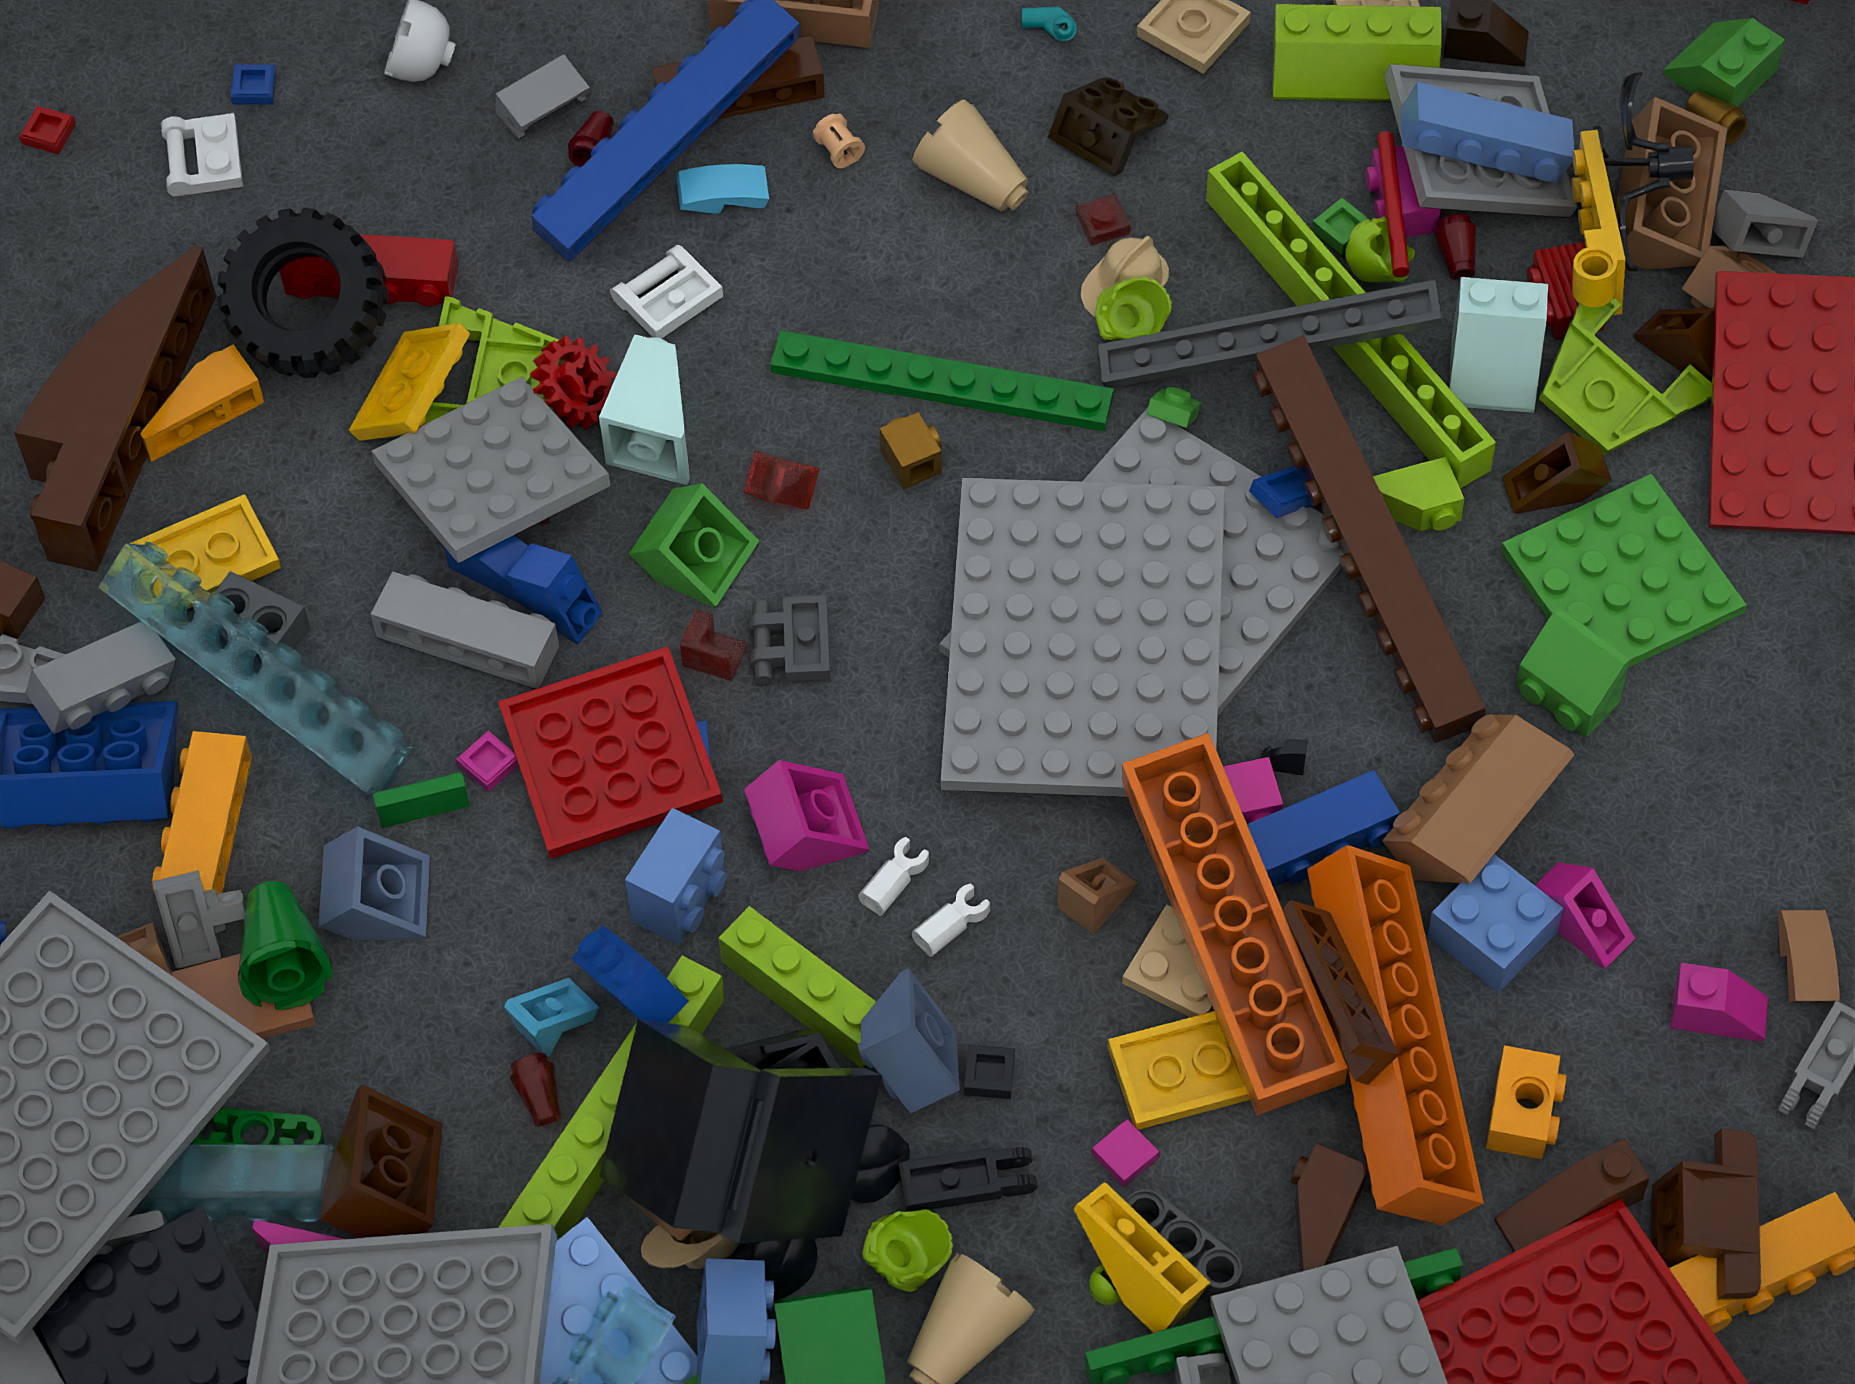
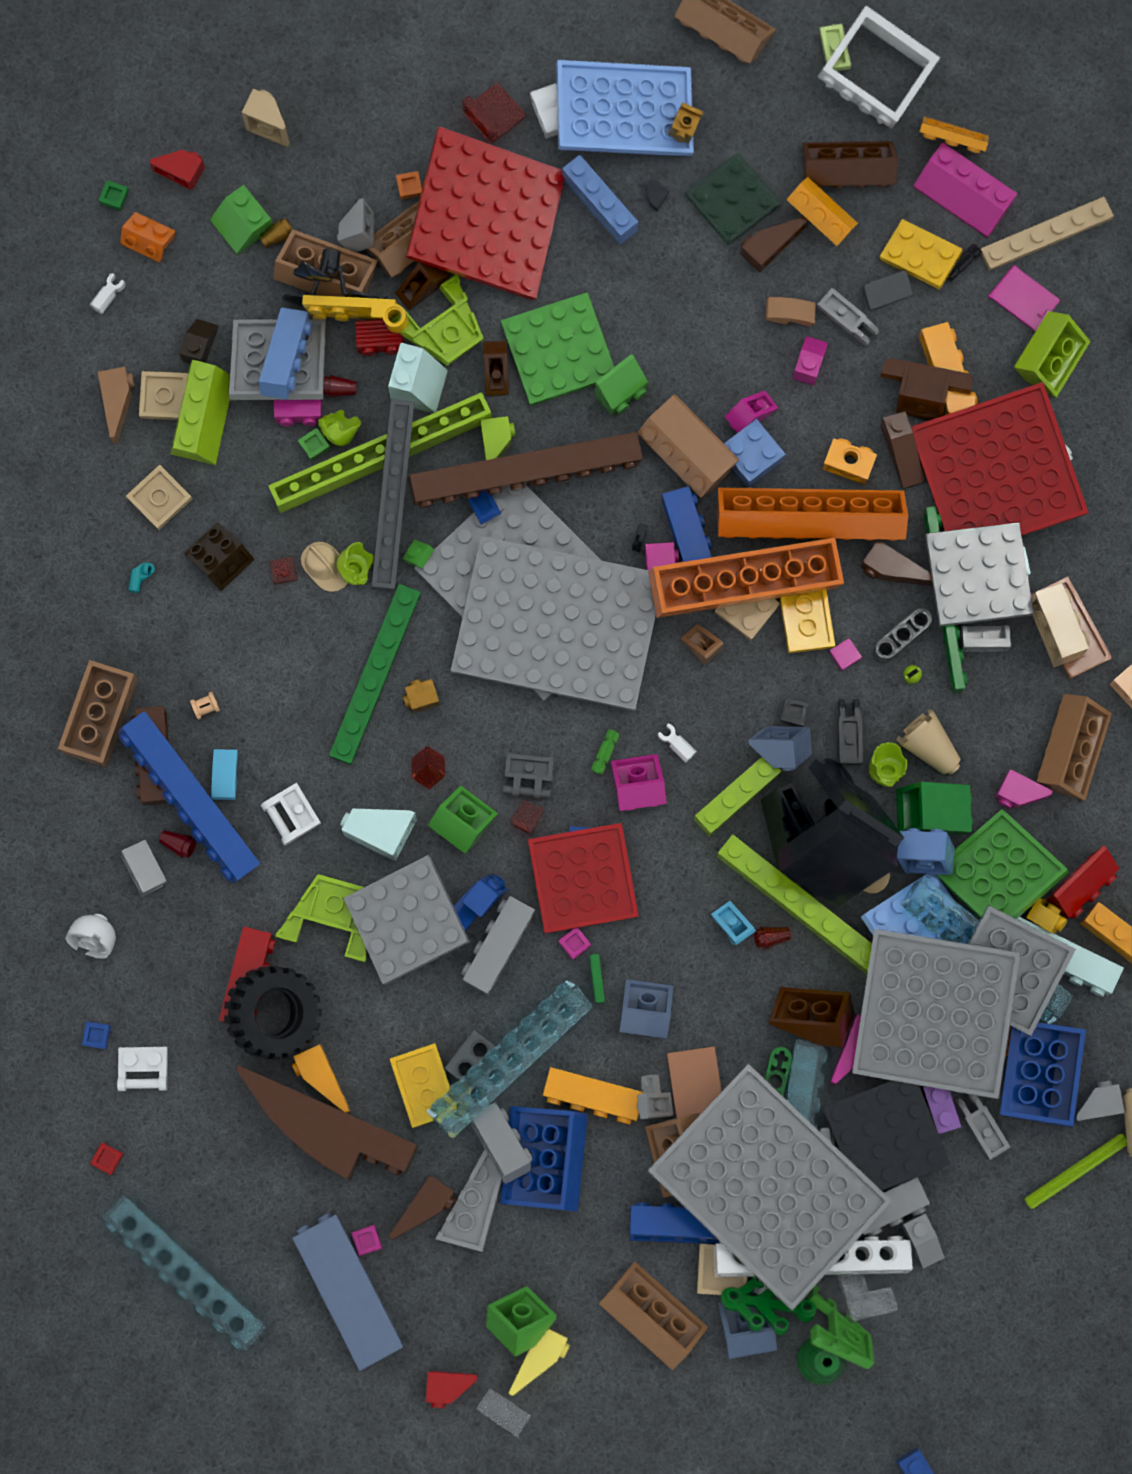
camera: 85 degrees left, 20 degrees up
(280, 950) = (678, 1057): green cone -> none
(410, 382) = (333, 960): yellow plate -> none
(574, 382) = (350, 869): red gear -> none
(628, 977) = (732, 879): blue brick -> none
(676, 877) = (670, 849): medium blue brick -> none
(857, 759) = (605, 752): none -> bright green axle
(949, 921) = (707, 719): white bar -> none
(972, 159) = (236, 633): tan cone -> none
(1142, 1265) = (914, 655): yellow slope -> none
(1341, 992) = (797, 531): reddish brown fence -> none
(1393, 204) = (315, 413): red bar -> none

